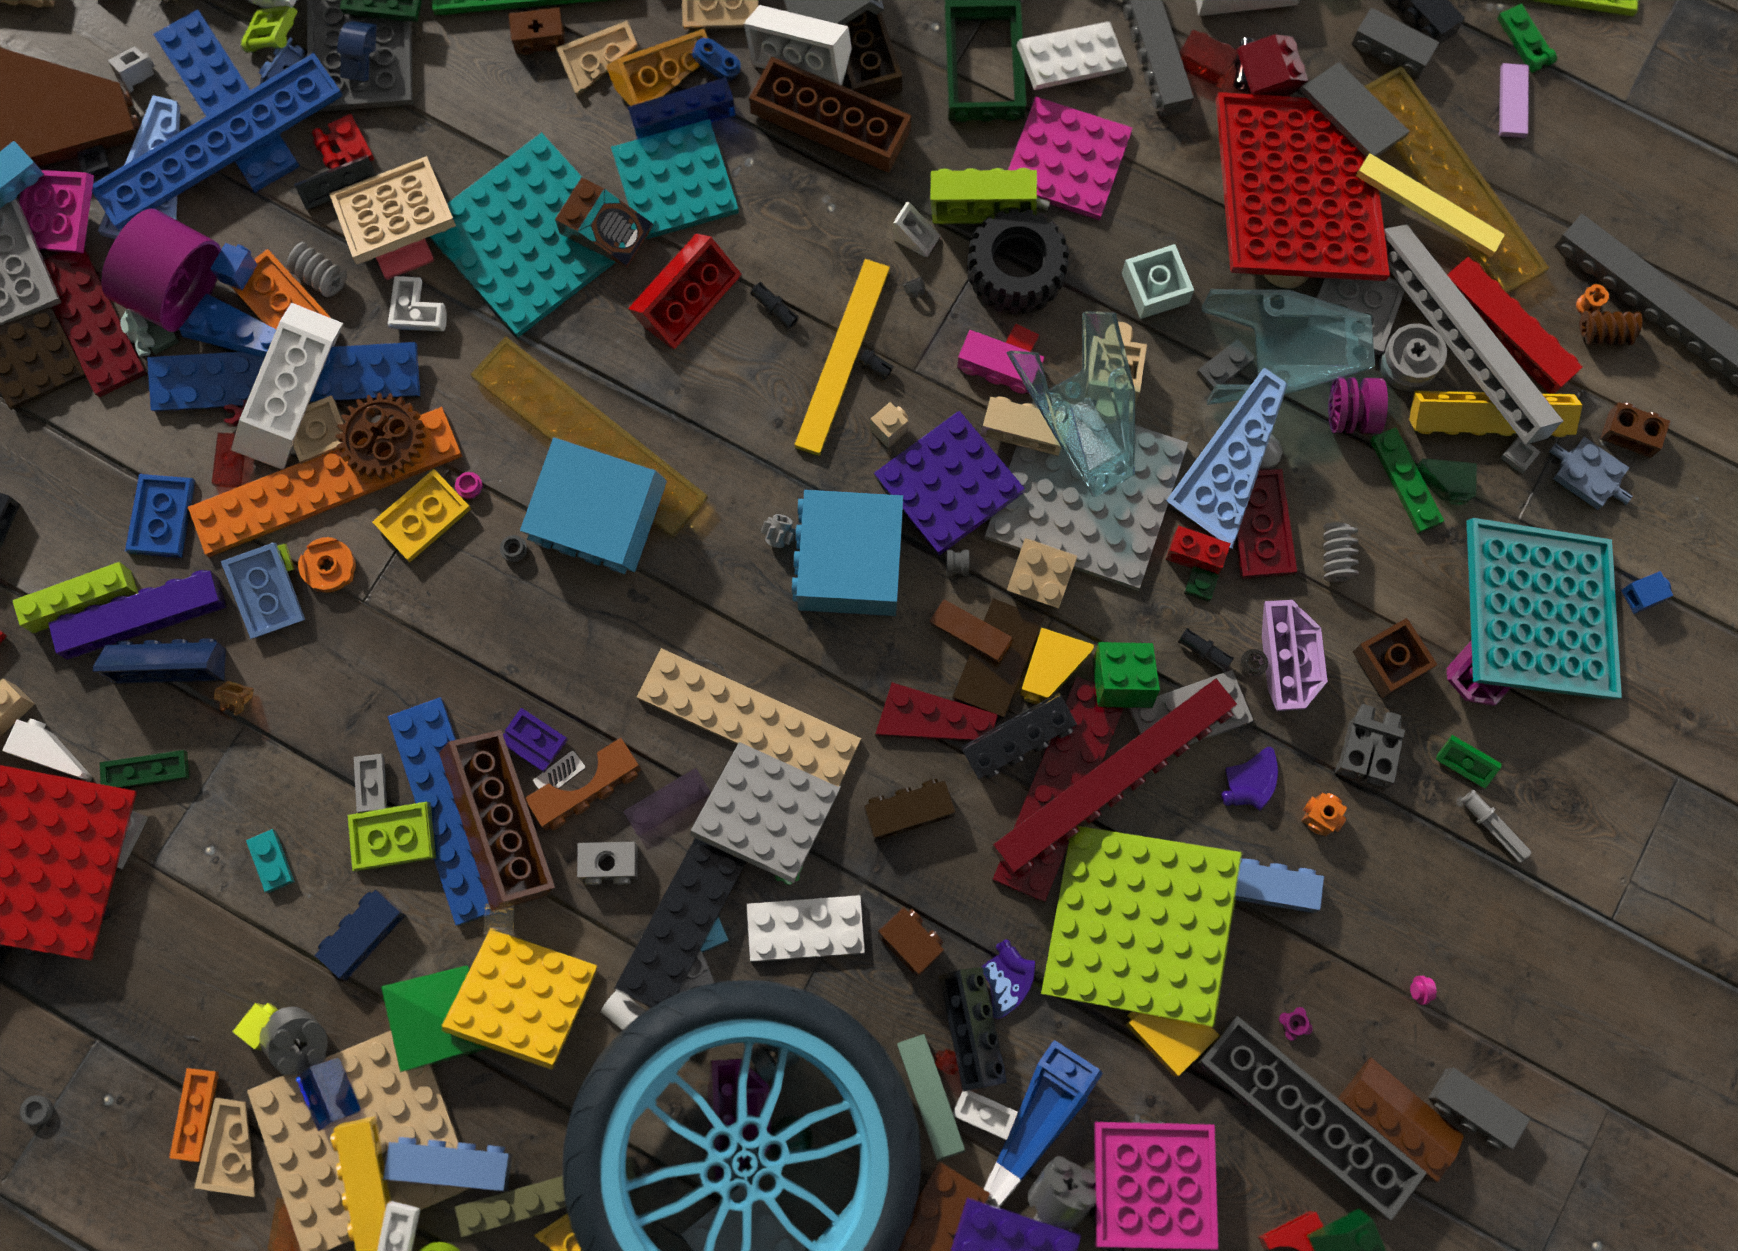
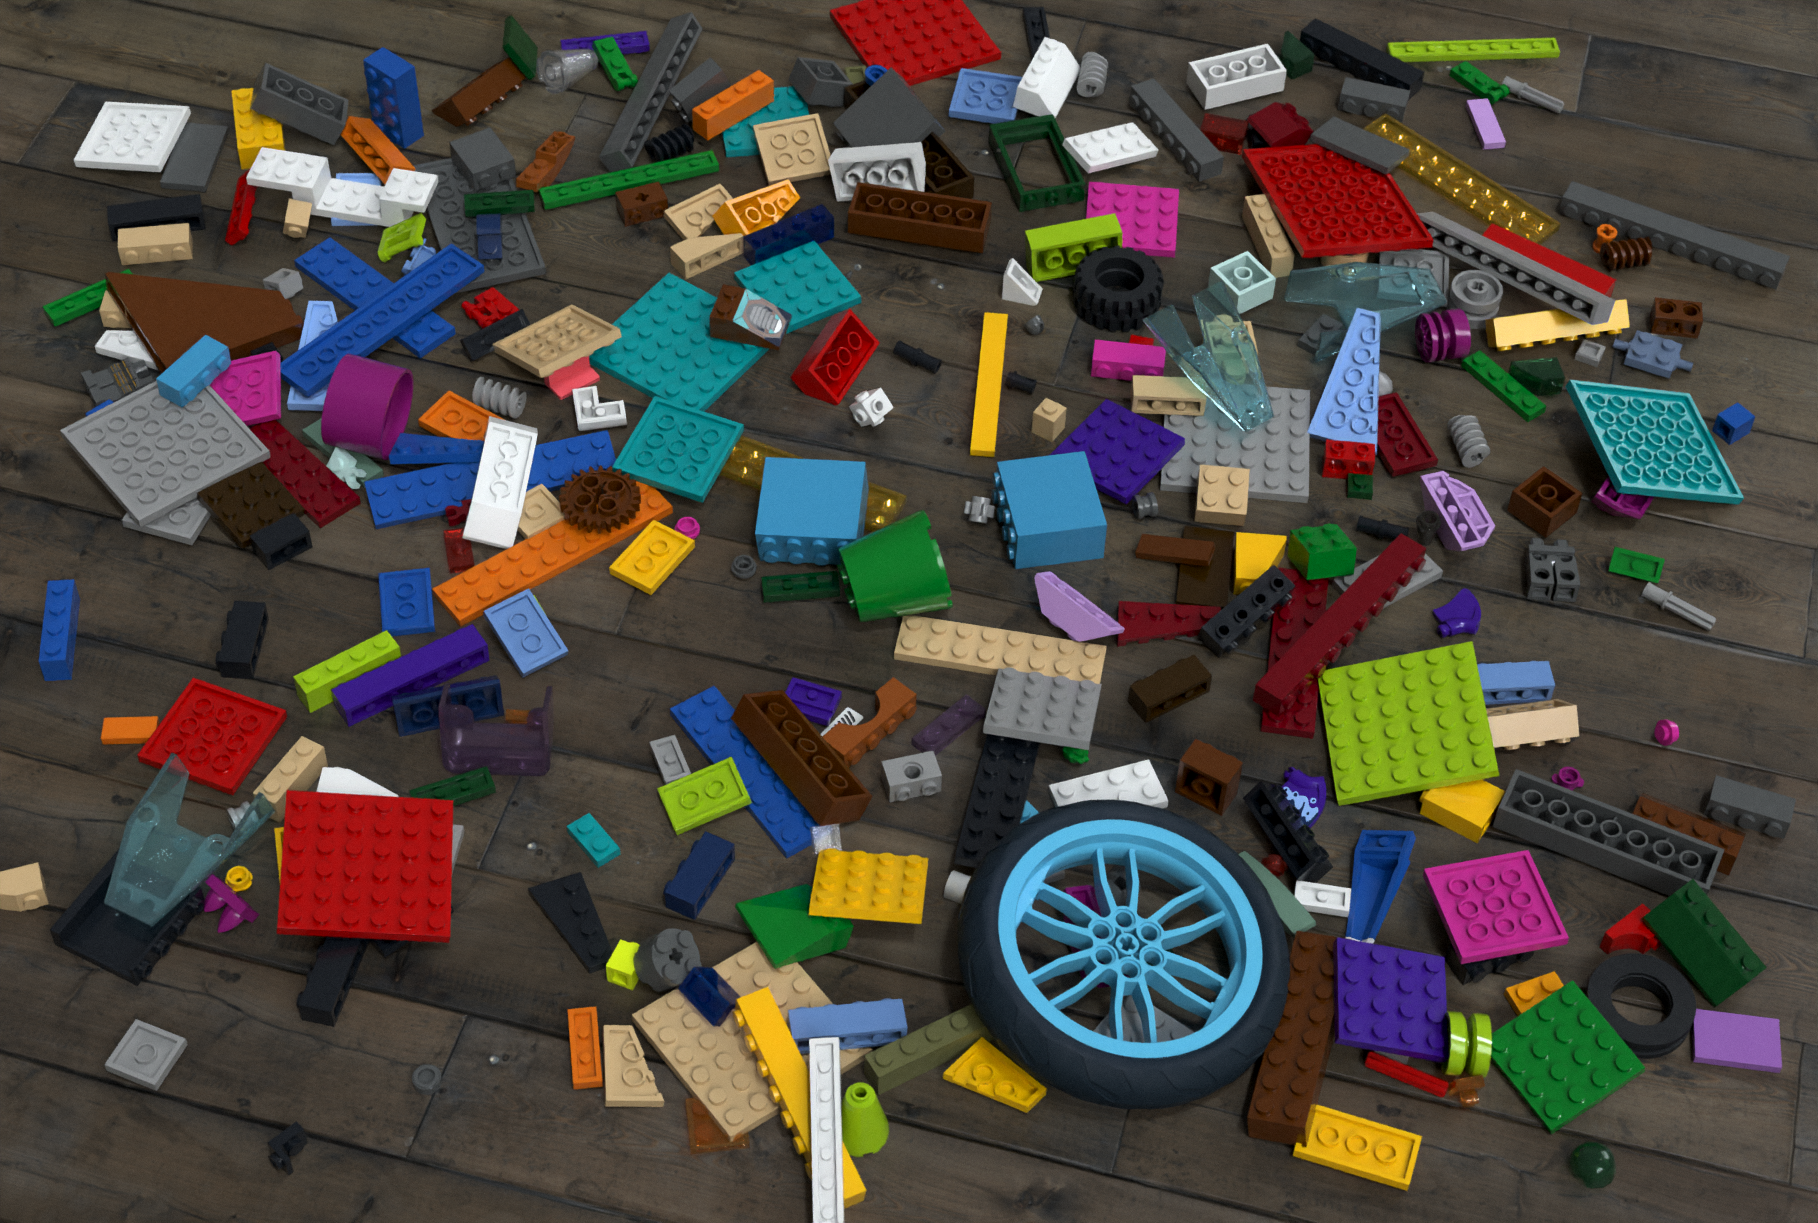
camera: 15 degrees left, 25 degrees down
(49, 412) = (281, 541): none -> black brick
(190, 723) = (499, 746): none -> clear purple windscreen
(227, 952) = (575, 918): none -> black wing
(234, 266) = (425, 402): blue brick -> none
(339, 574) = (579, 620): orange plate -> none
(481, 384) = (678, 448): none -> teal plate
(564, 588) = (800, 586): none -> dark green plate
(582, 114) = (703, 253): none -> tan slope
(656, 610) = (895, 571): none -> green cone
(701, 368) = (870, 407): none -> white brick
(715, 60) = (804, 197): blue plate -> none
(841, 690) = (1072, 611): none -> lavender wedge
(1063, 1193) = (1416, 931): dark grey brick -> none
(1209, 218) = (1268, 235): none -> tan brick
(1277, 943) = (1533, 723): none -> tan slope
(1315, 816) = (1530, 622): orange brick -> none
(1430, 205) = (1447, 194): light yellow tile -> none
(1582, 69) = (1533, 95): none -> light grey axle

